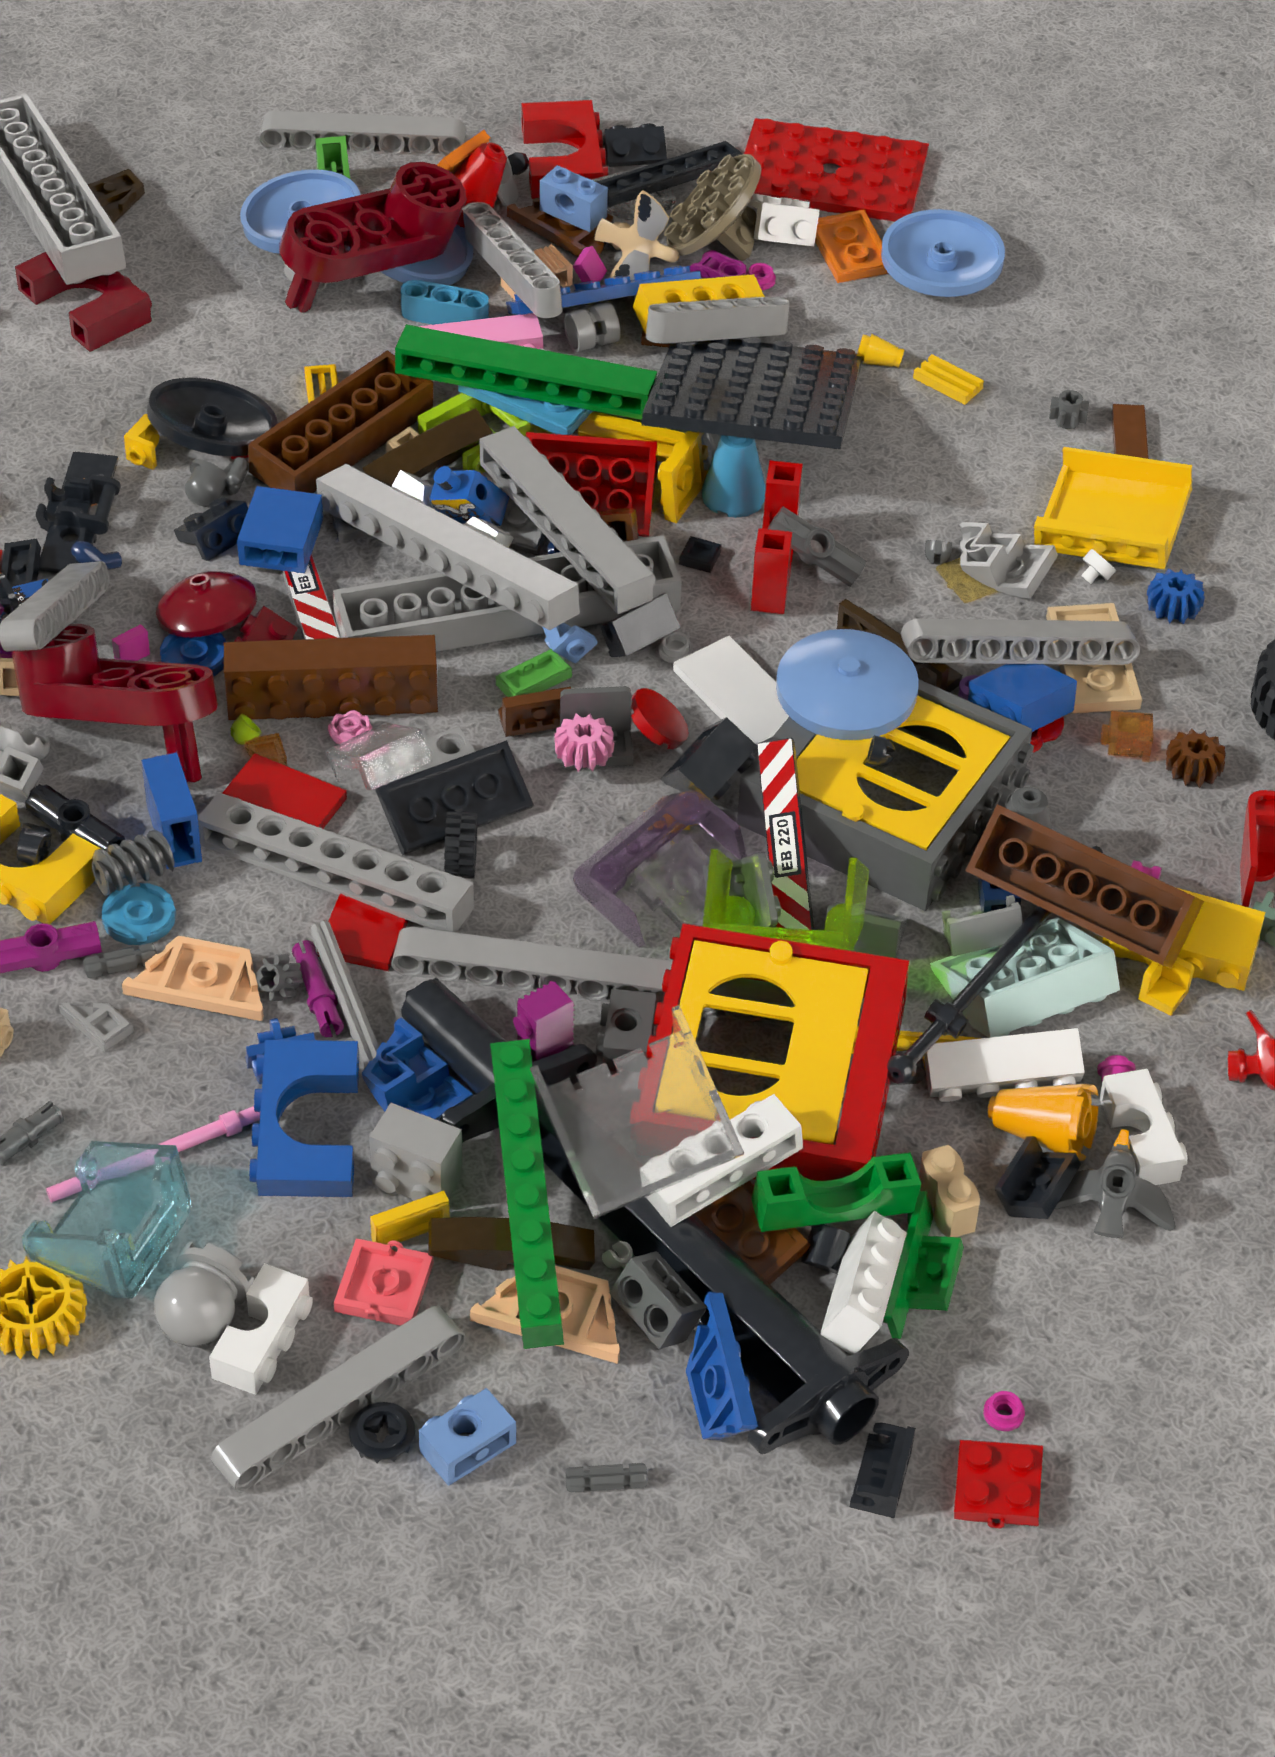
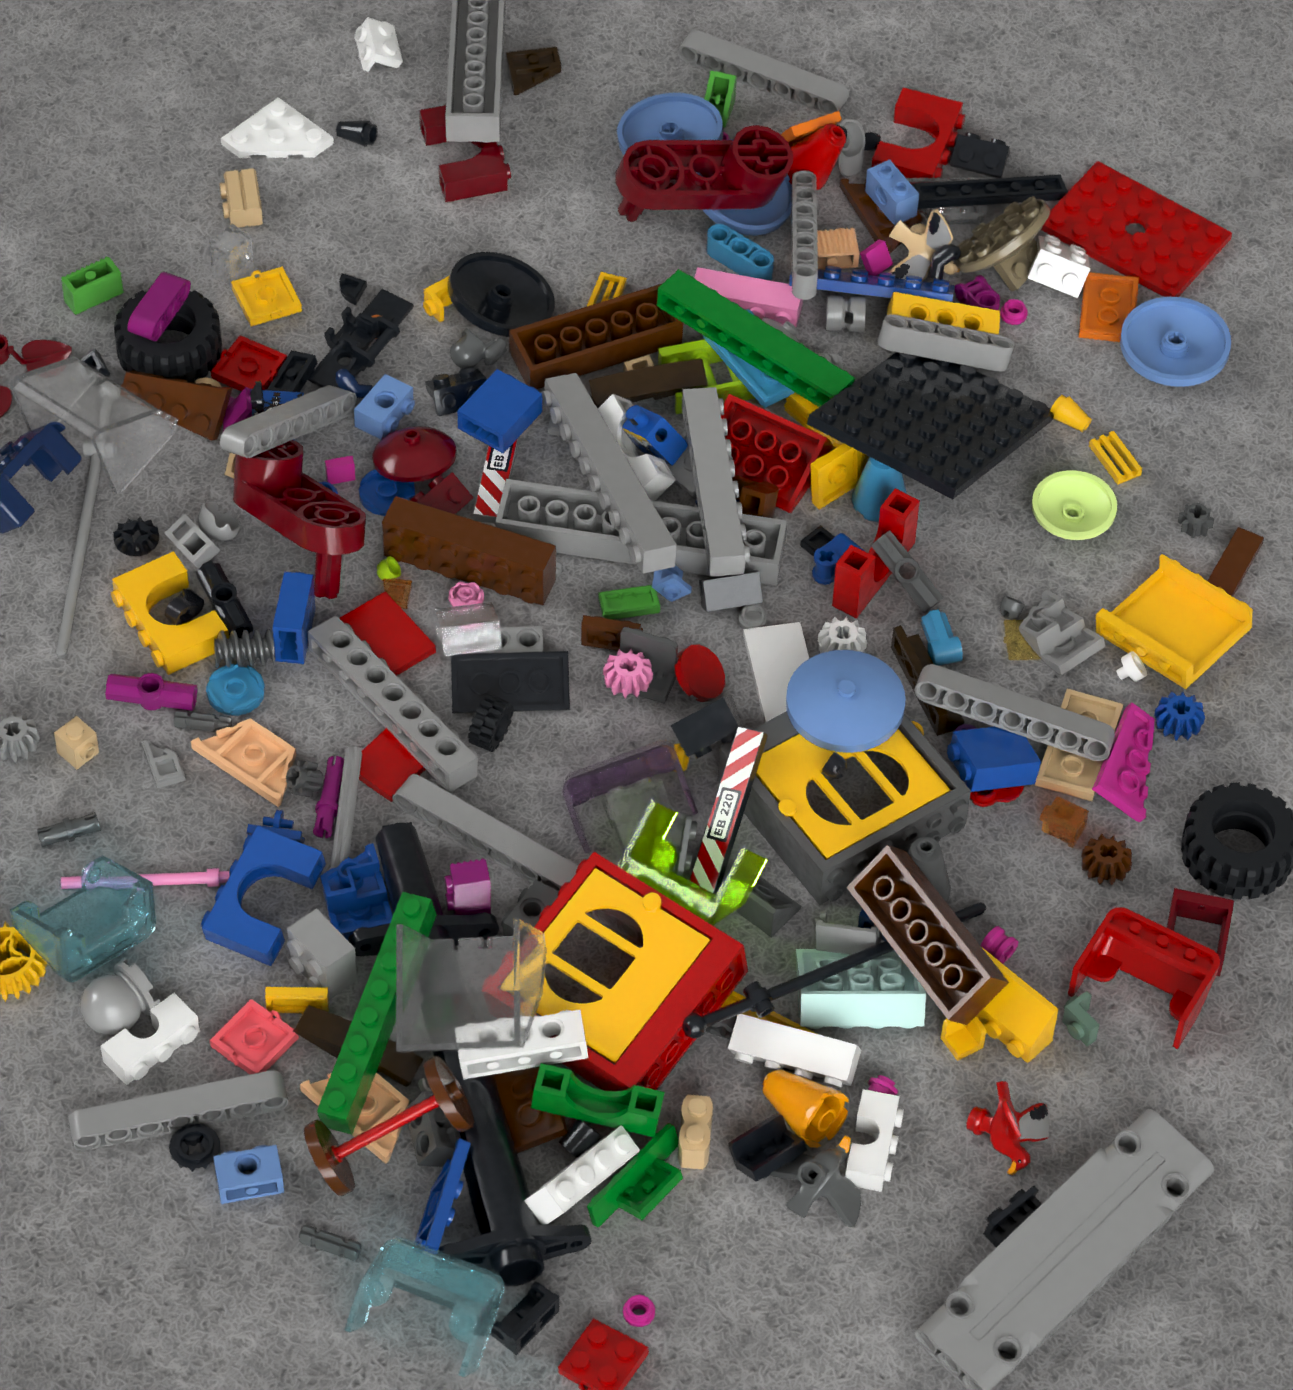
camera: 25 degrees right, 5 degrees up
(34, 463) = (352, 288): none -> black tile
(144, 568) = (384, 407): none -> medium blue brick
(661, 245) = (941, 258): none -> black arm
(677, 1244) = (331, 1156): none -> reddish brown piece
(729, 562) = (827, 557): none -> blue piece
(776, 1457) = (440, 1278): none -> clear light blue windscreen
(781, 633) = (842, 636): none -> white gear
(887, 603) = (942, 644): none -> dark azure piece
(943, 431) = (1075, 495): none -> yellowish green dish
(1157, 662) = (1125, 769): none -> dark pink wing

